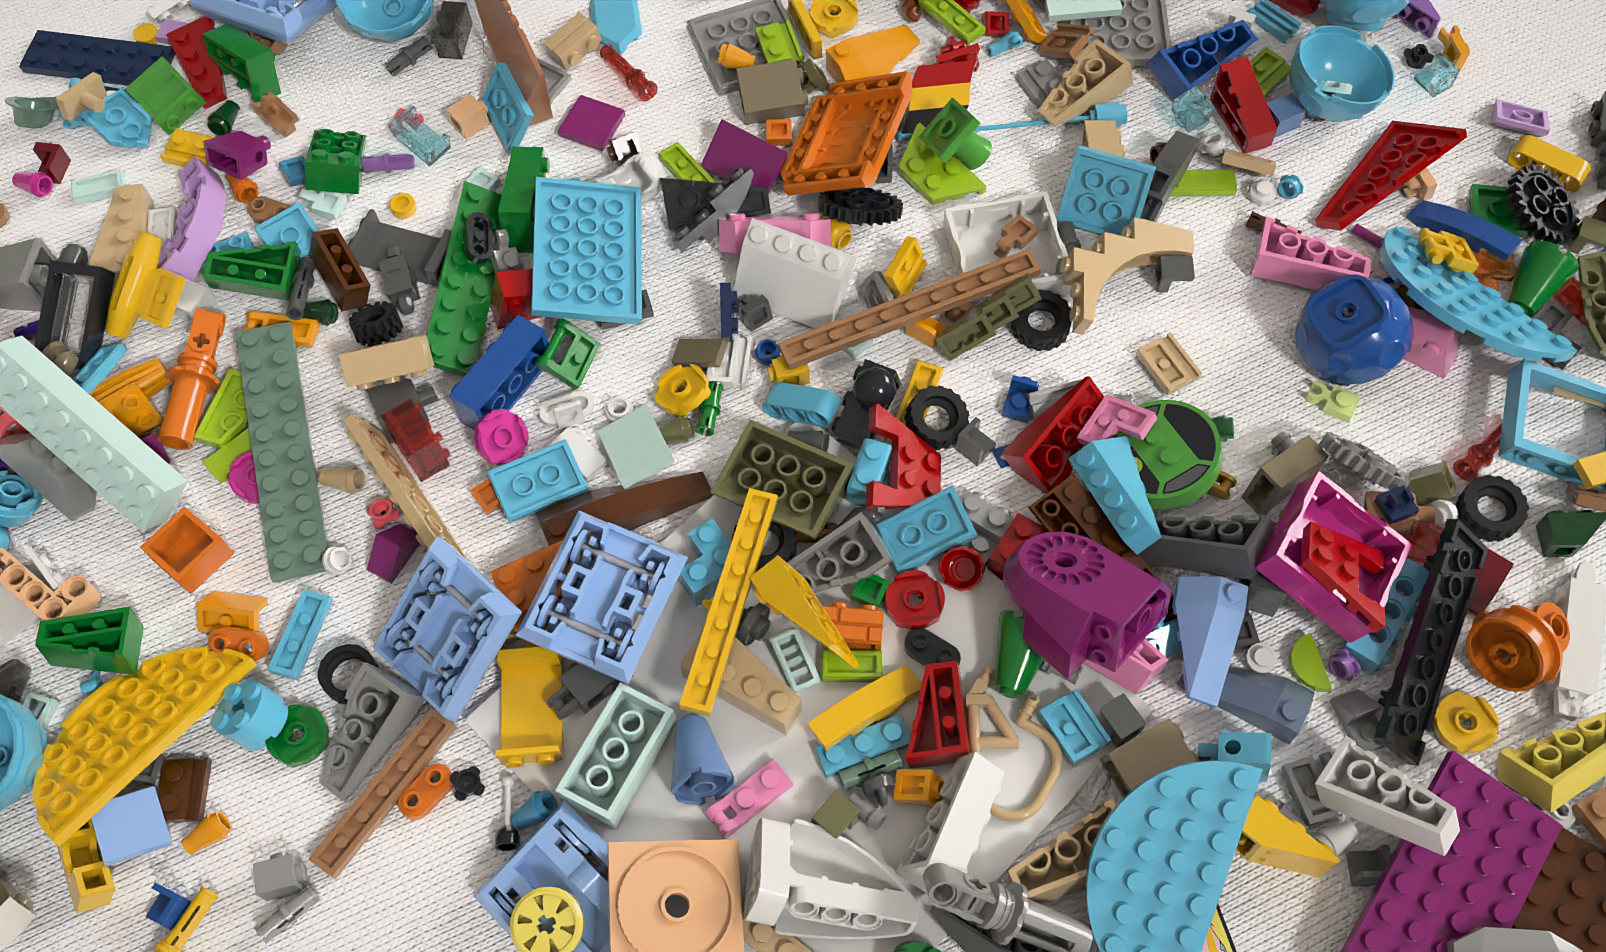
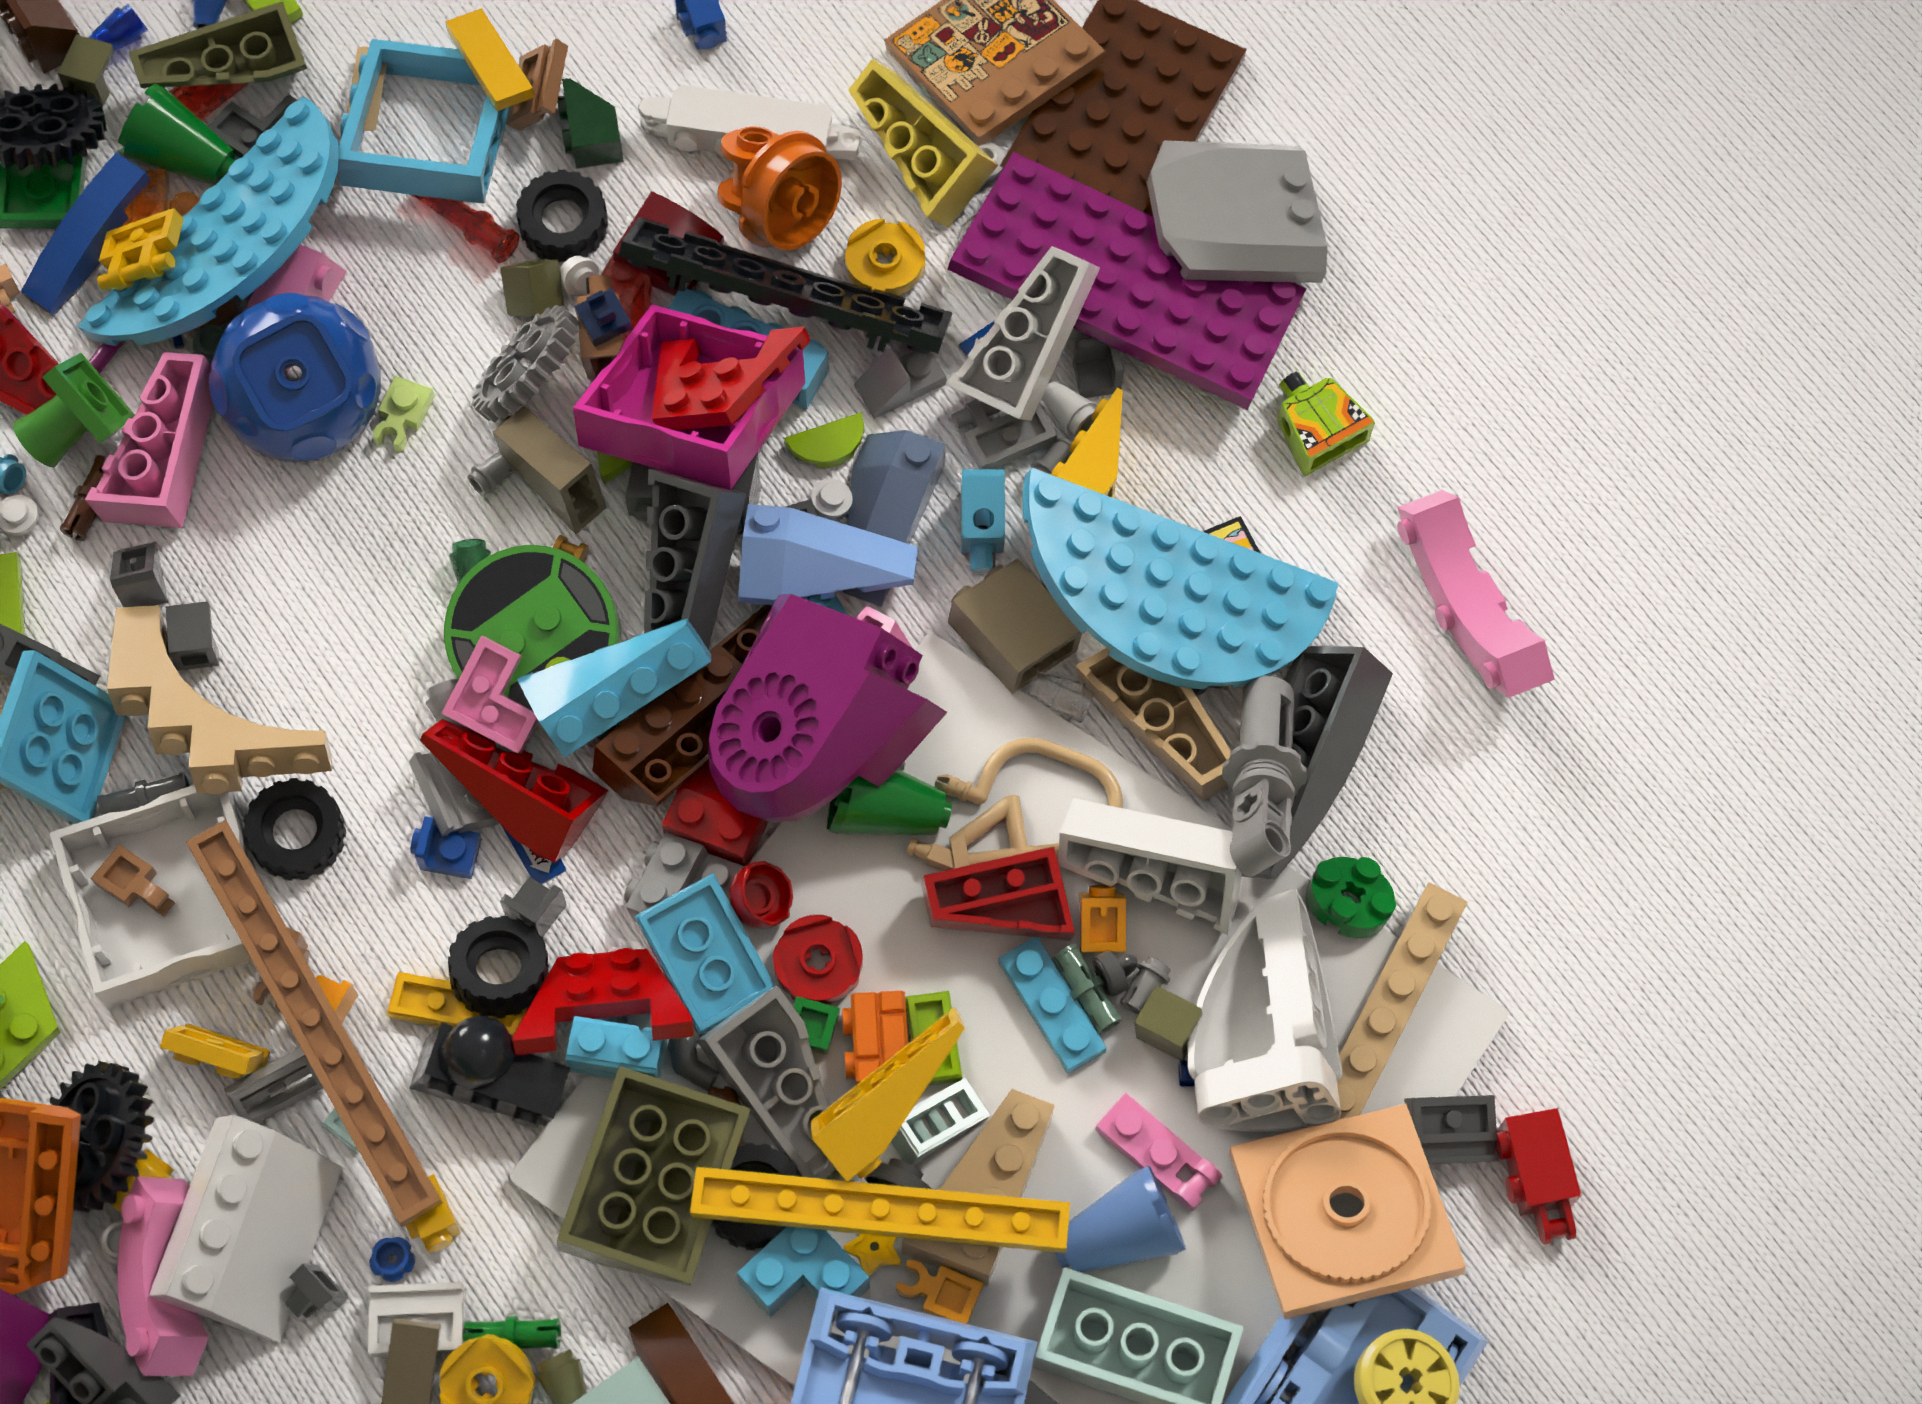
camera: 105 degrees left, 5 degrees up
(678, 644) = (946, 1295): none -> light orange plate
(728, 306) = (320, 1327): dark blue plate -> none
(801, 404) = (499, 1178): medium azure beam -> none
(813, 438) = (567, 1156): dark grey cone -> none
(865, 706) = (999, 1003): yellow slope -> none
(931, 650) = (894, 926): black plate -> none
(988, 316) = (320, 915): olive slope -> none
(1074, 727) = (979, 725): medium azure plate -> none
(1122, 719) = (961, 661): dark grey panel -> none
(1168, 363) = (360, 637): tan plate -> none
(1217, 248) = (138, 576): none -> dark grey slope
(1330, 214) = (81, 405): none -> bright green plant
(1344, 665) = (827, 397): medium lavender plate -> none

